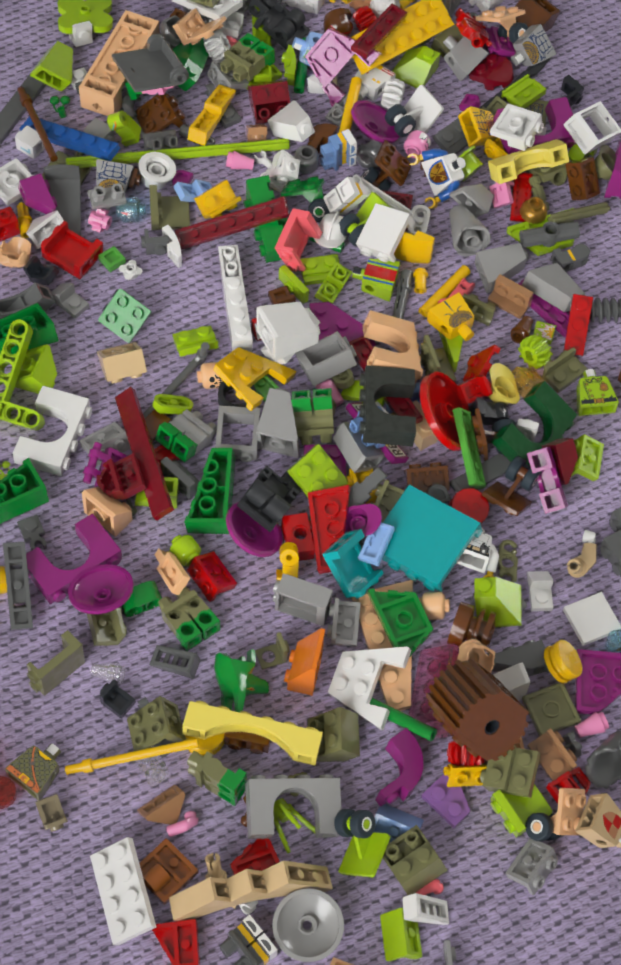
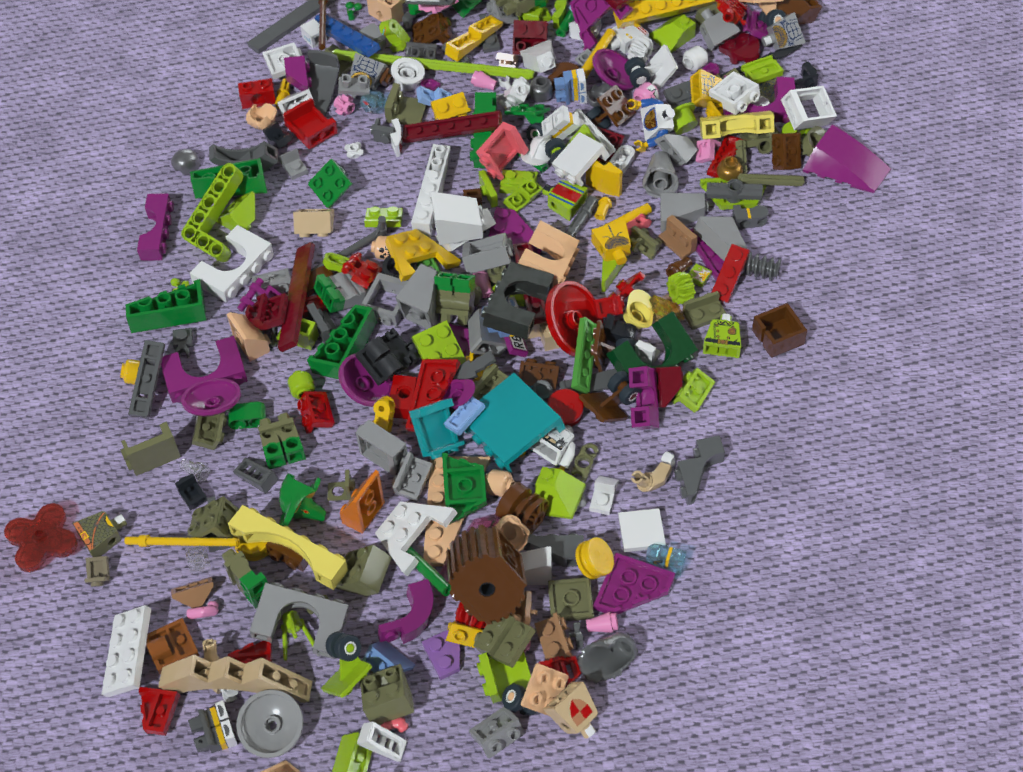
camera: 25 degrees right, 5 degrees down
(112, 259) = (341, 137): bright green plate -> none
(171, 571) = (280, 399): light nougat hinge -> none
(202, 407) = (362, 272): none -> red plate
(435, 359) = (588, 277): olive bracket -> none
(451, 92) = (695, 58): none -> white head

